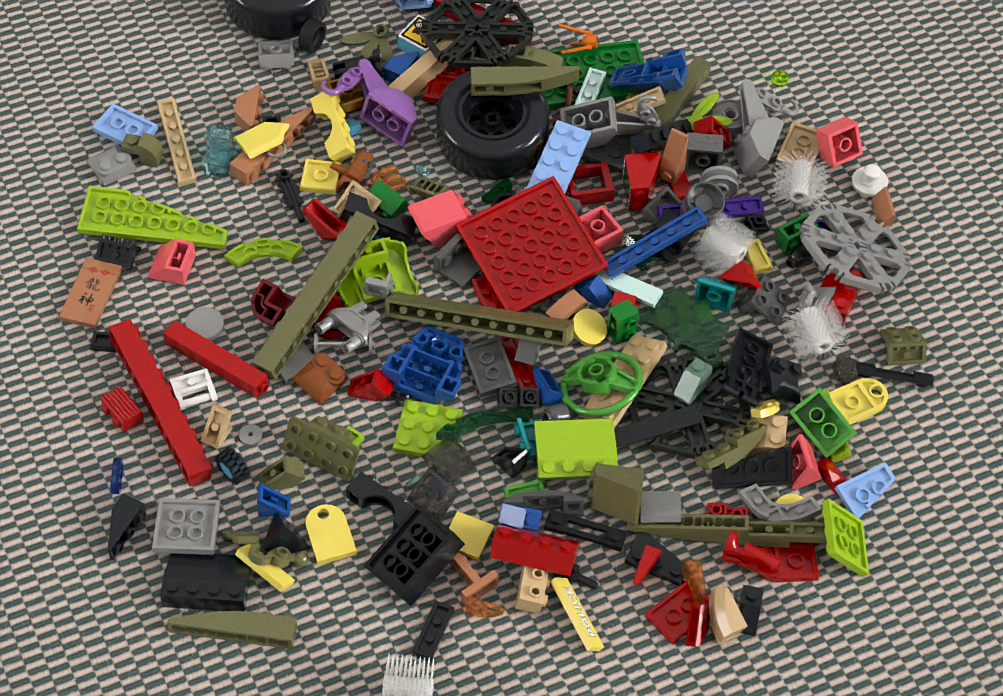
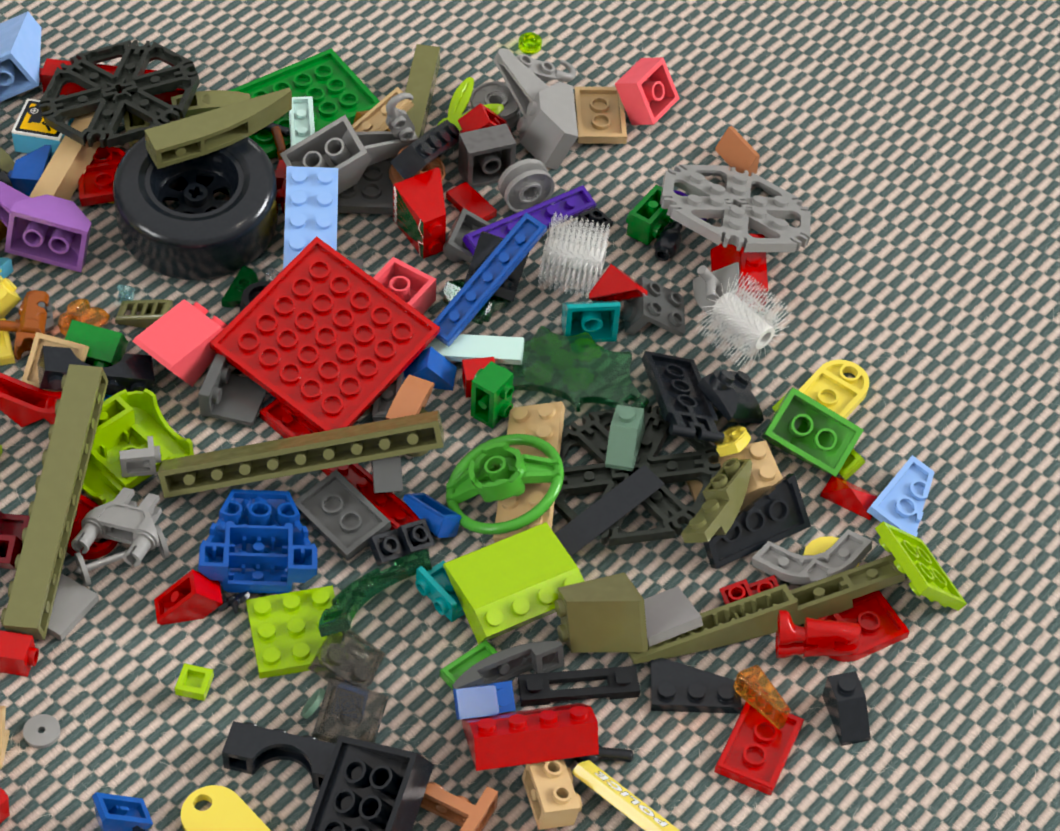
camera: 25 degrees left, 5 degrees down
(232, 465) = (38, 784): black wheel -> none
(283, 474) = (117, 768): olive slope -> none
(320, 378) = (110, 613): dark orange slope -> none
(322, 445) = (159, 706): olive bracket -> none
(473, 533) = (432, 743): light yellow tile -> none
(511, 460) = (432, 628): black slope -> none
(556, 412) = (463, 542): dark grey head -> none
(589, 41) = (272, 67): orange plant -> none
(589, 327) = (455, 416): light yellow tile -> none
(593, 196) = (384, 238): red window -> none
(647, 561) = (687, 696): red slope -> none
(666, 71) = (376, 79): blue wedge -> none
(674, 156) = (456, 166): nougat slope -> none
(697, 625) = (793, 756): red slope -> none
(708, 198) = (523, 198): dark grey wheel -> none
(725, 615) = (827, 724): tan slope -> none
(758, 258) = (621, 260): light yellow tile -> none
(800, 181) = (627, 149): white piece -> none
(803, 463) = (818, 495): coral slope -> none
(844, 369) = (798, 359): clear smoke head -> none
(869, 180) = (703, 127): white plate -> none
(904, 345) = (854, 305): olive bracket -> none
(921, 379) = (895, 340): black container -> none

